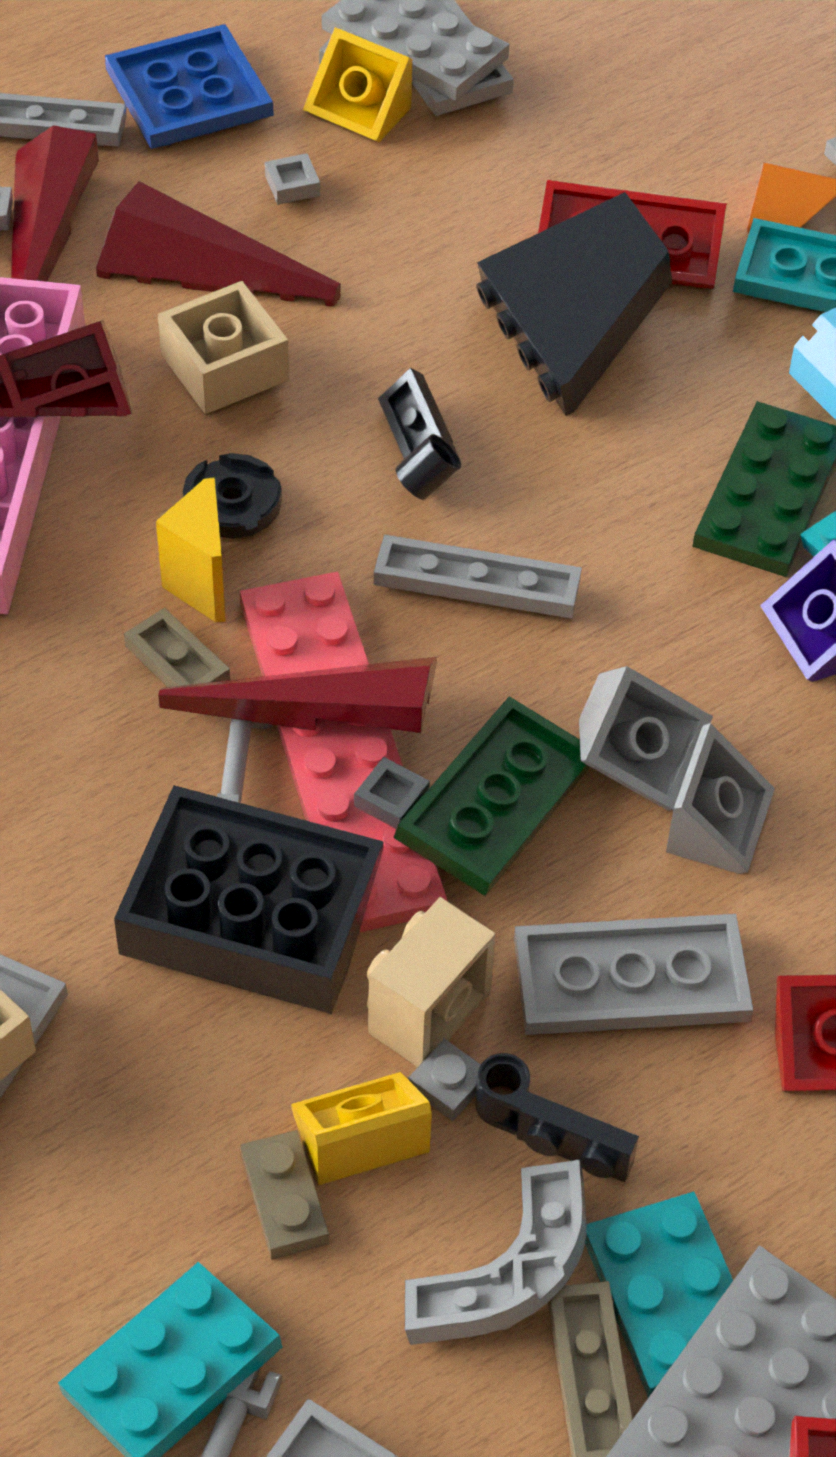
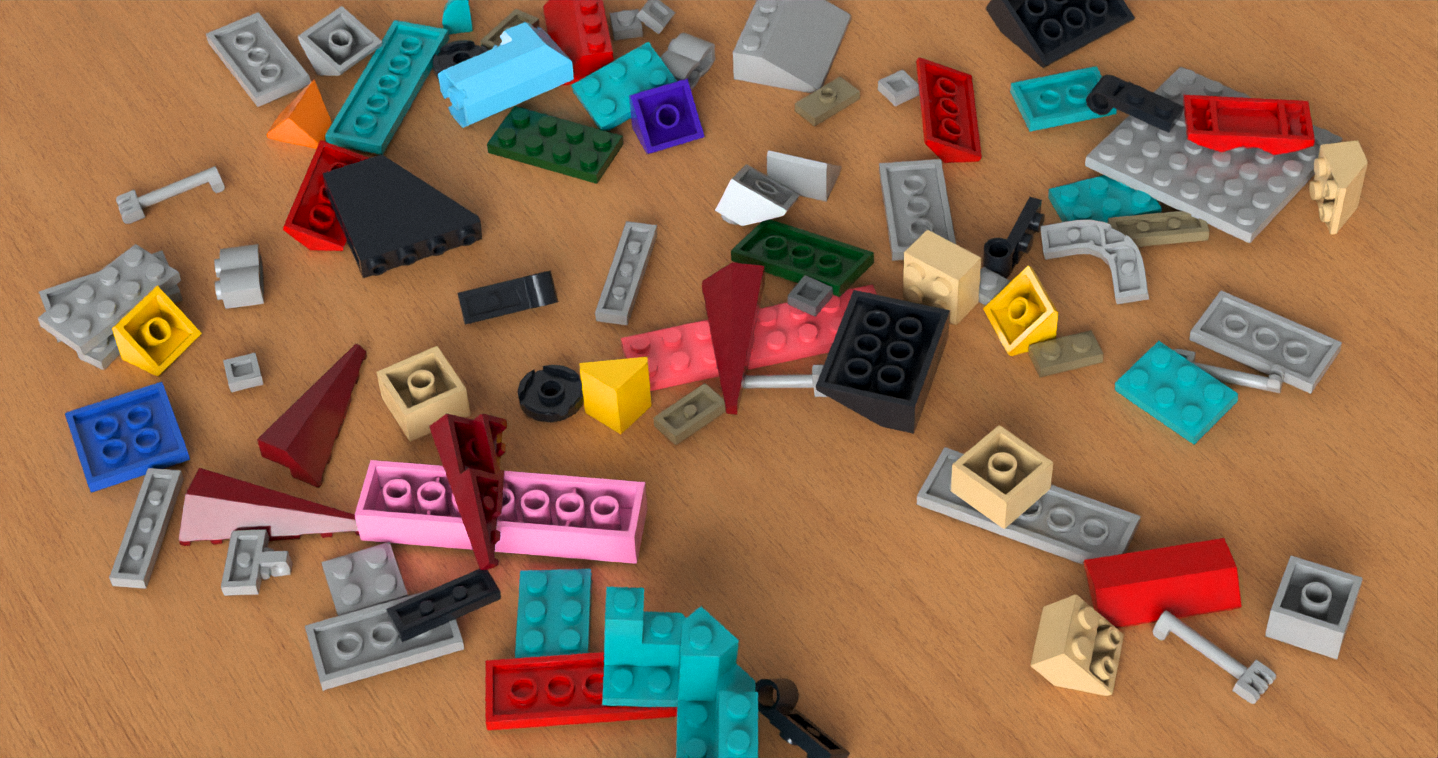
camera: 85 degrees left, 5 degrees down
(469, 160) = (240, 276): none -> light grey brick
(621, 57) = (132, 206): none -> light grey hinge

